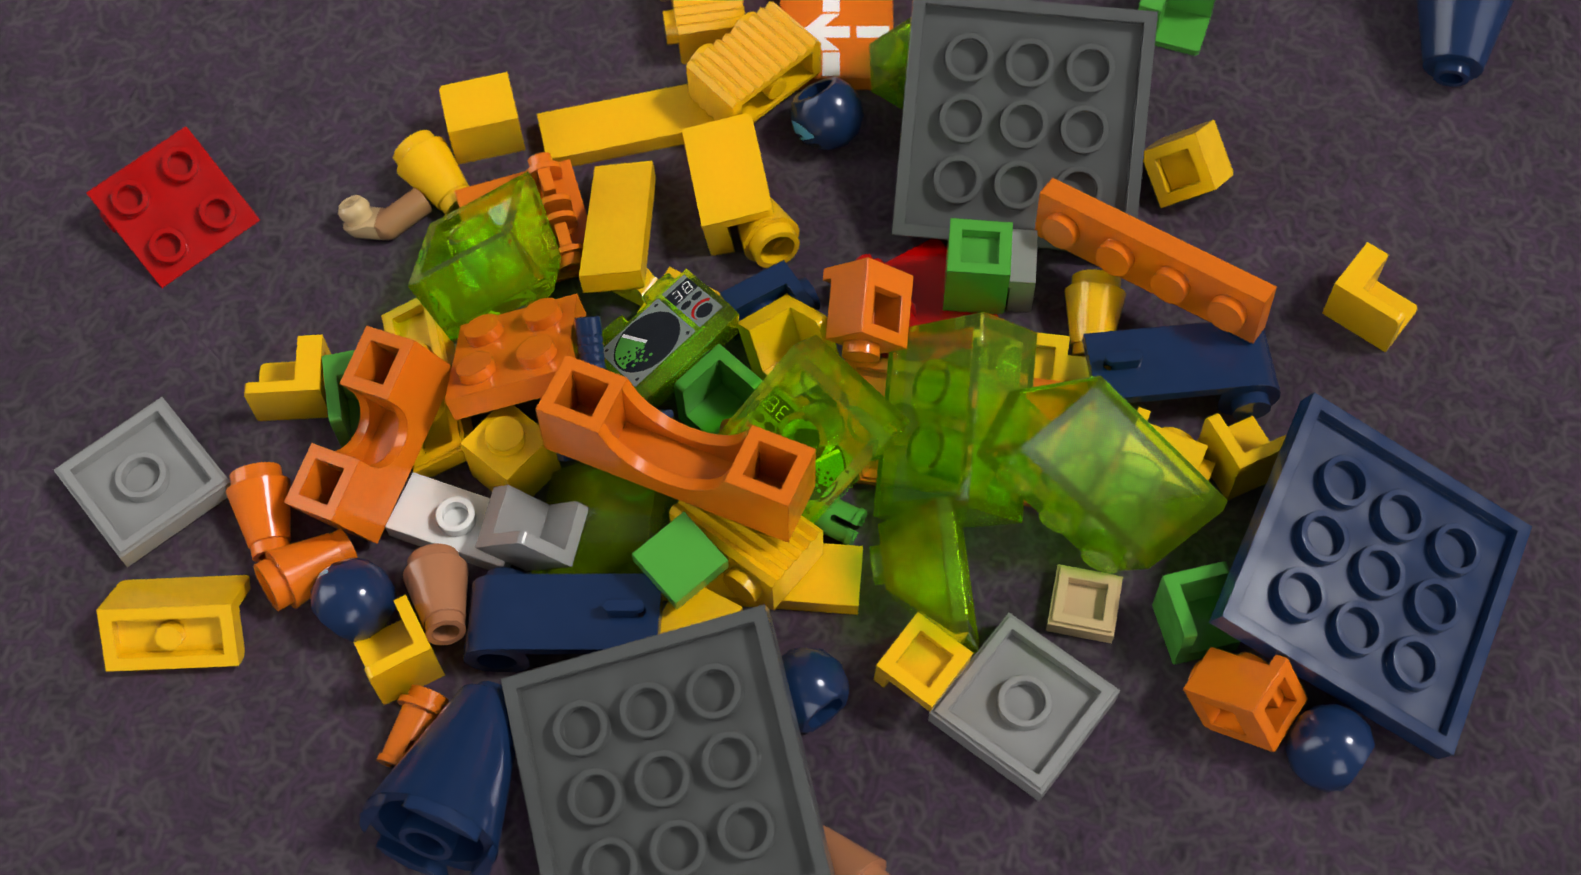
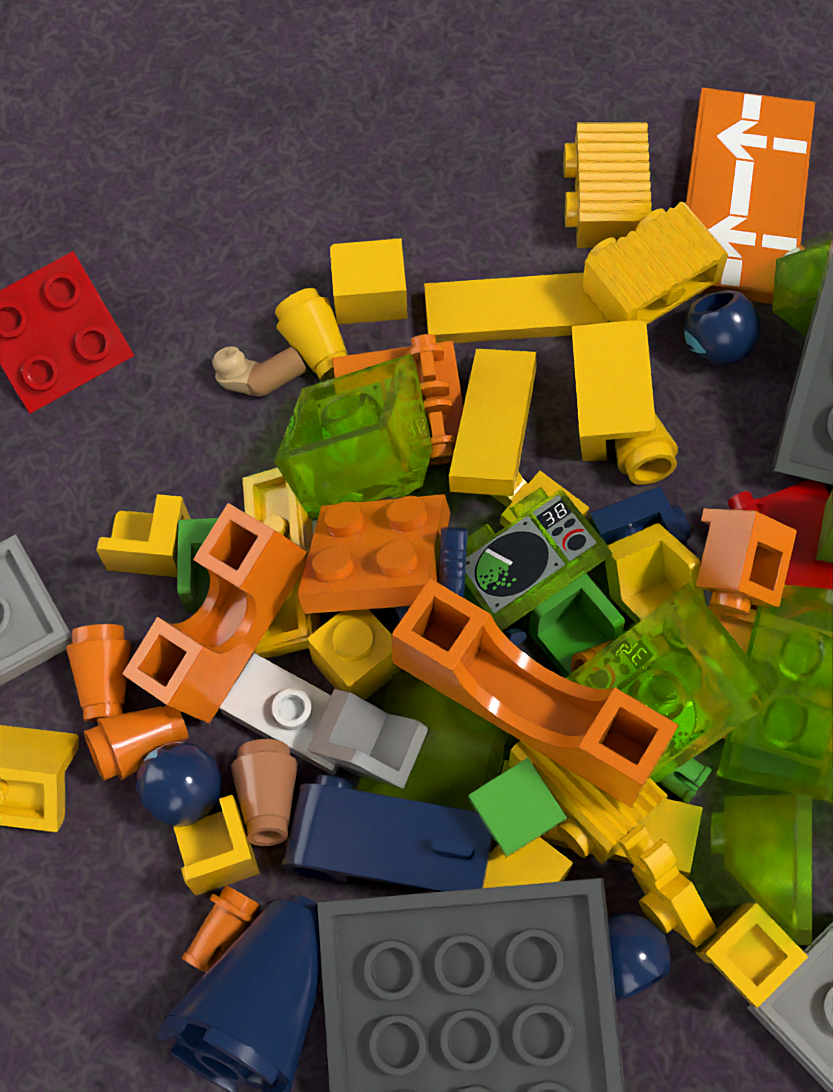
camera: 10 degrees right, 5 degrees up
(837, 621) = (669, 896): none -> yellow plate

